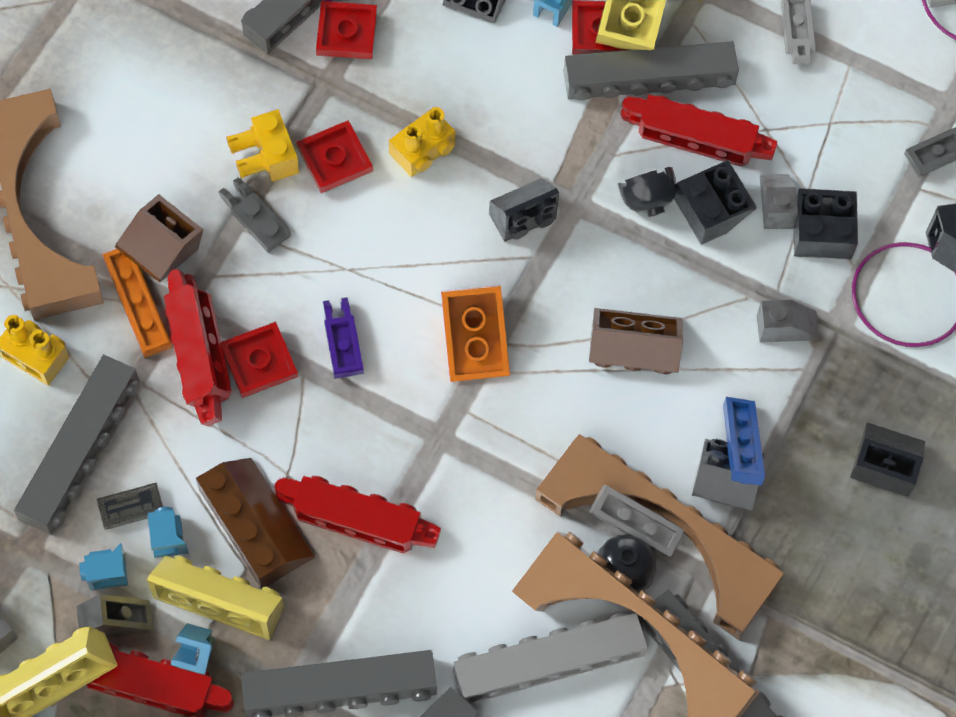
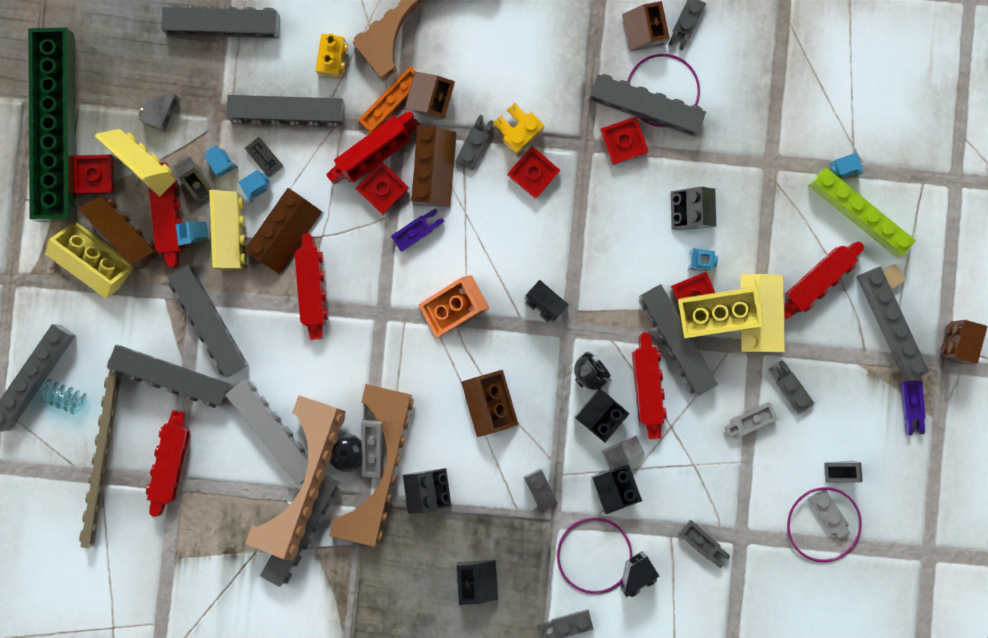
camera: 70 degrees right, 20 degrees up
(261, 282) = (433, 166): none -> reddish brown slope
(422, 142) = (565, 221): yellow brick -> none
(743, 441) = (444, 493): blue plate -> none

